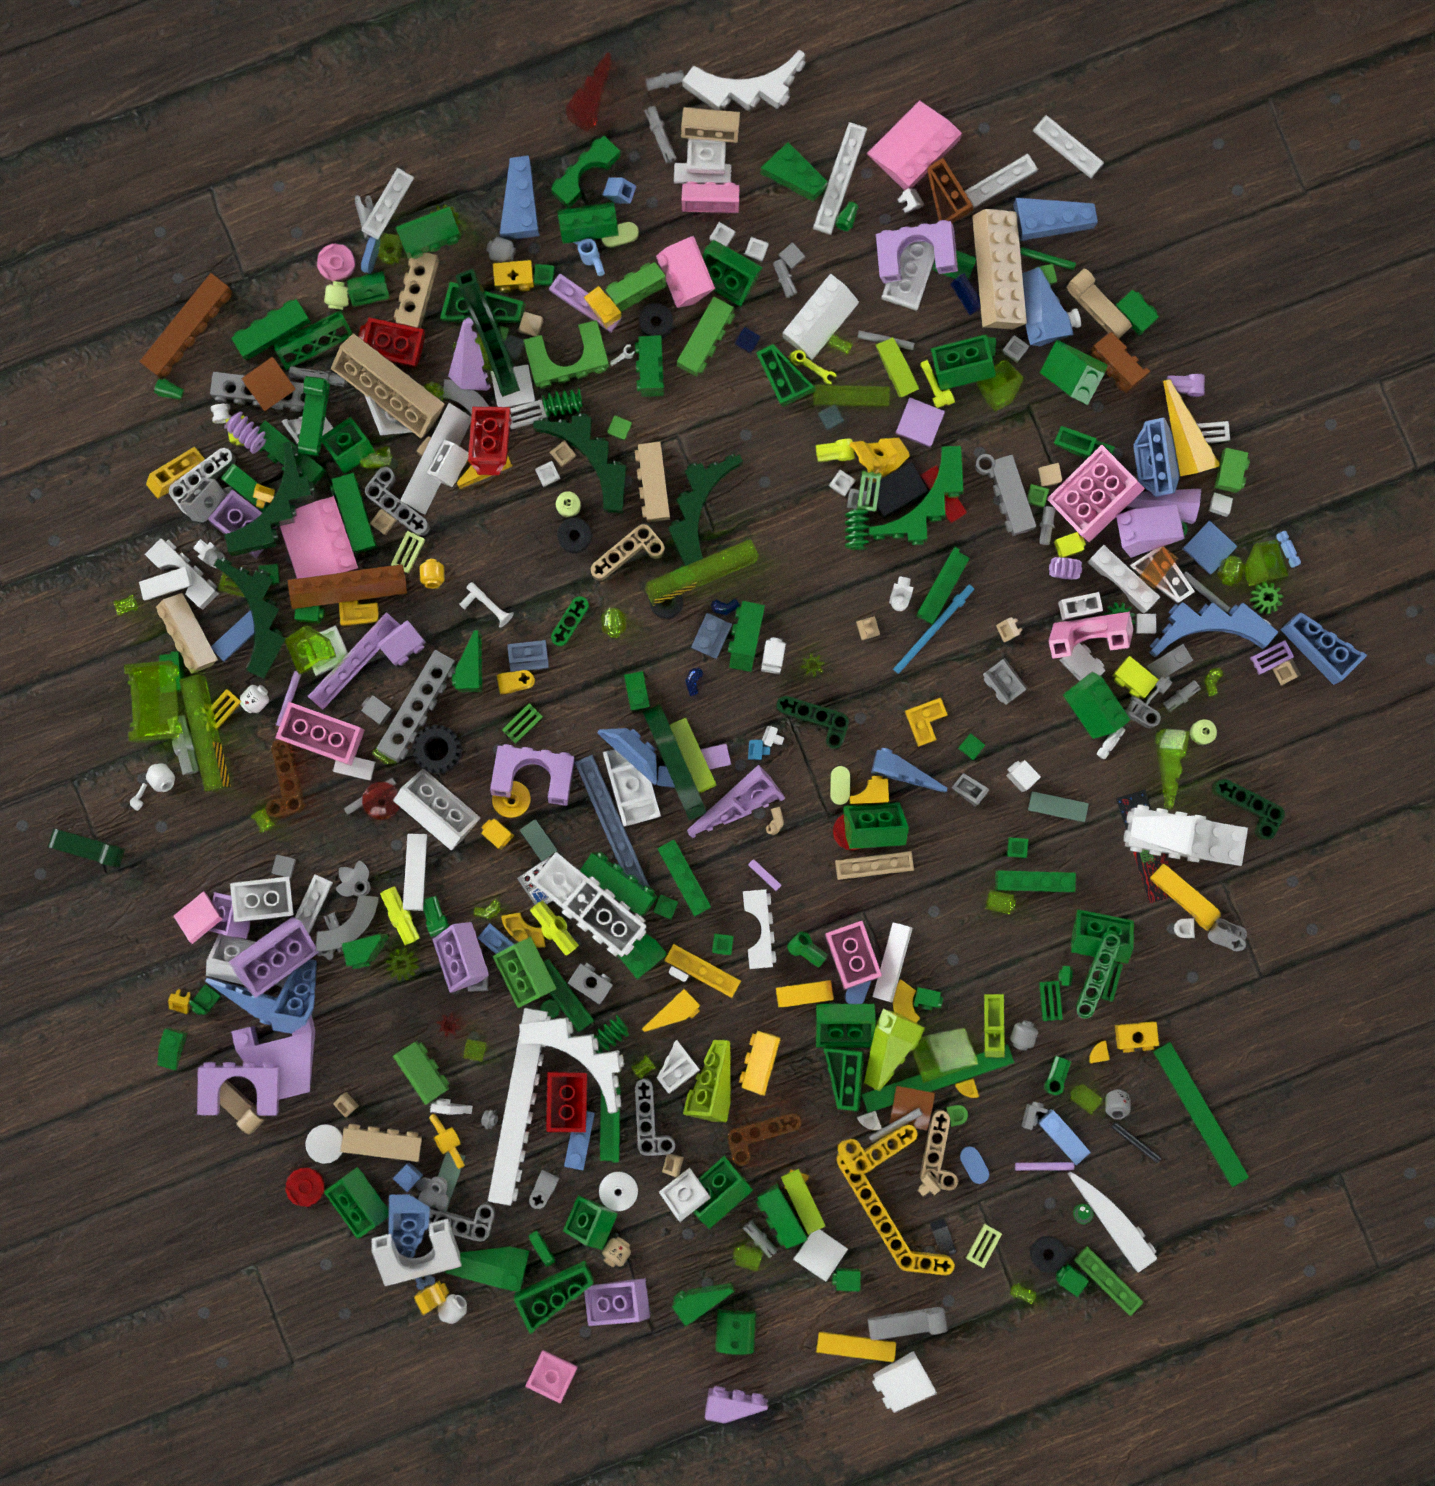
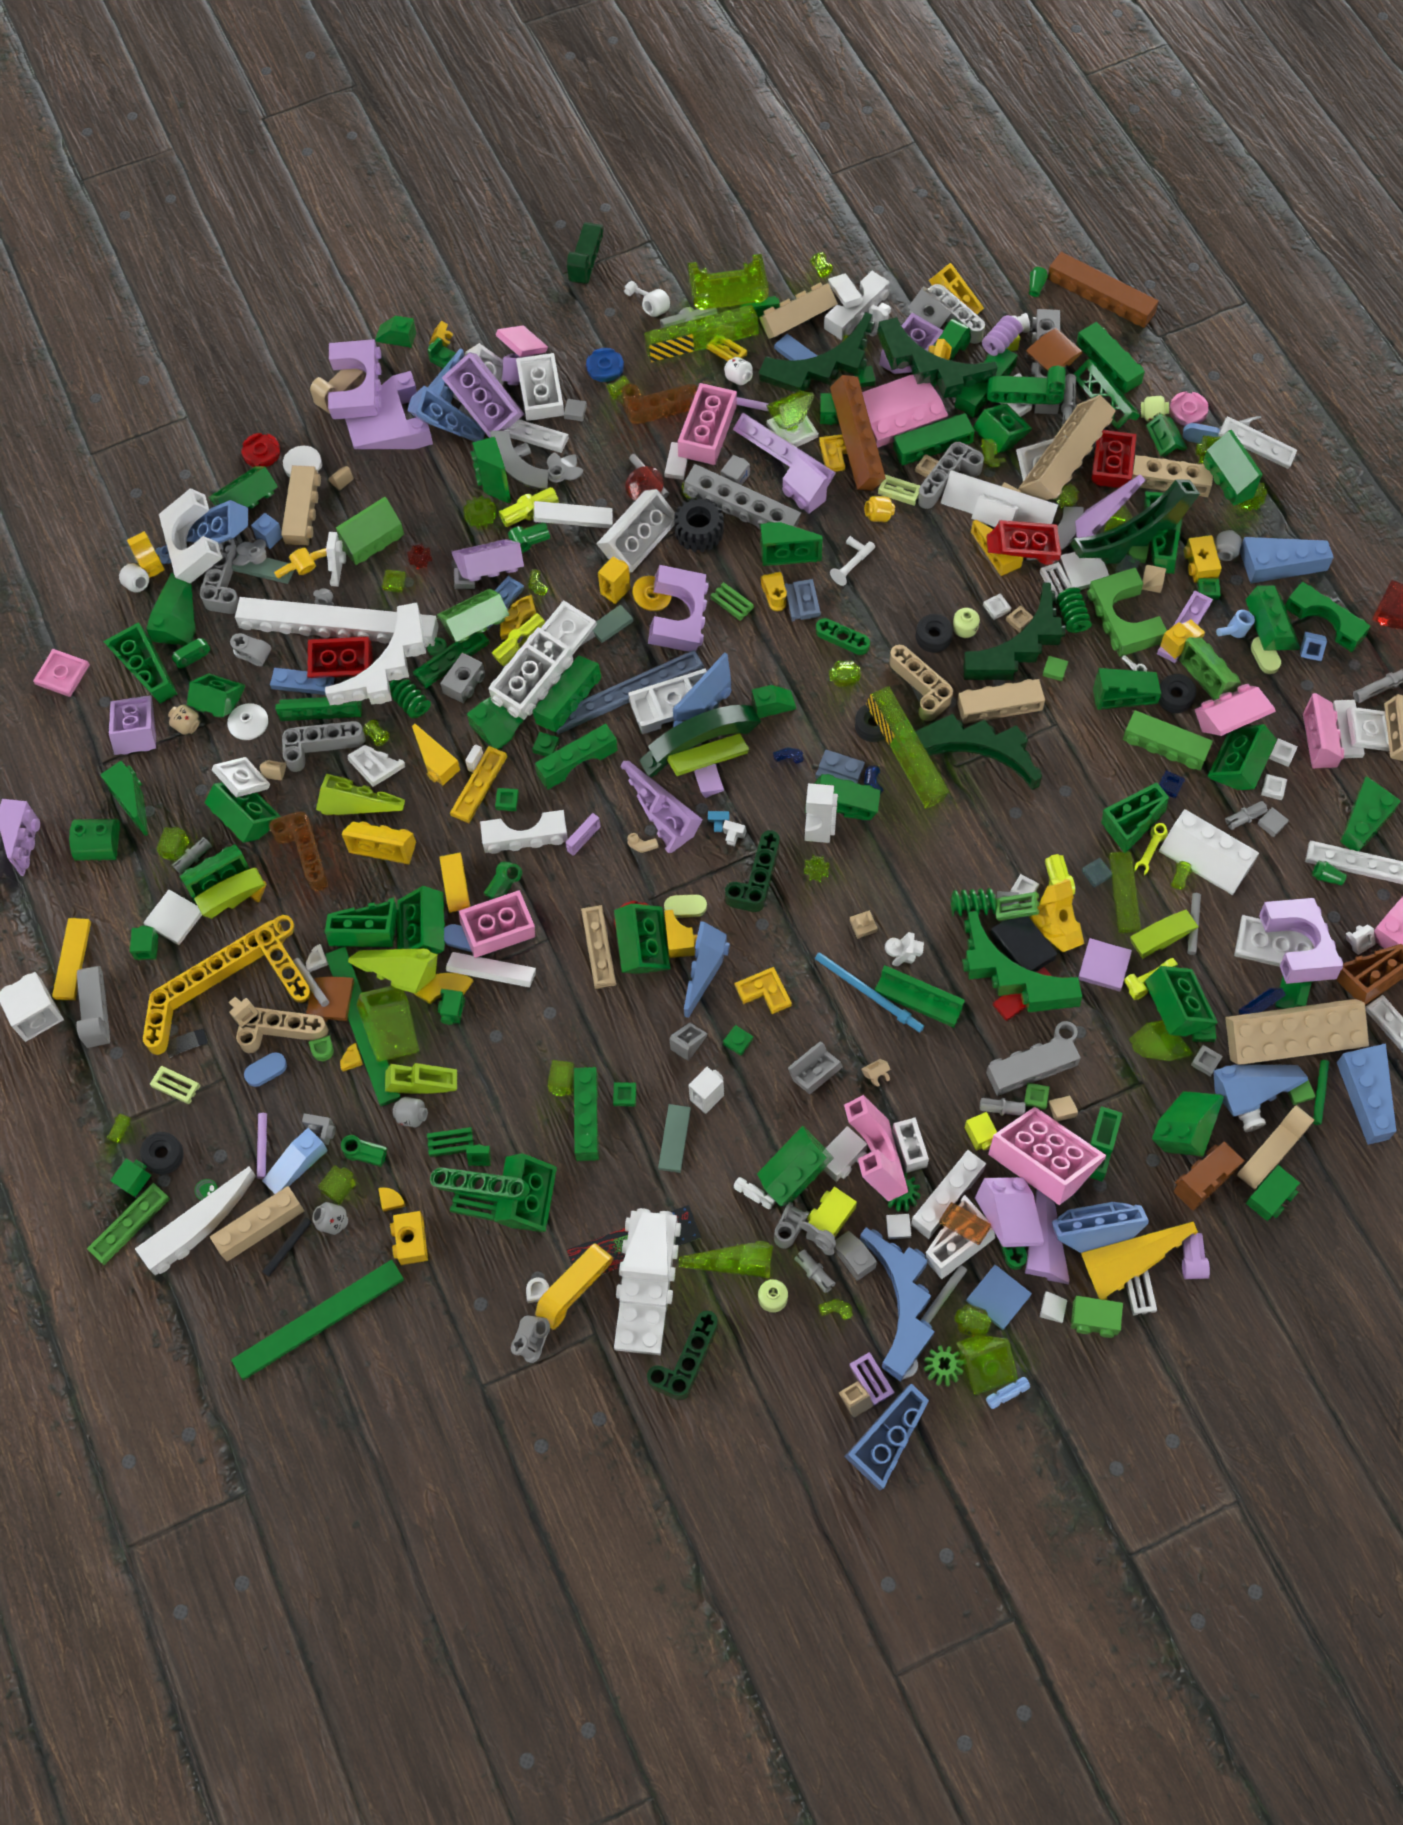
camera: 90 degrees right, 20 degrees down
(230, 834) = (604, 365): none -> blue tile
(1065, 568) = (953, 1126): lavender gear -> none
(1118, 1167) = (257, 1224): none -> tan brick

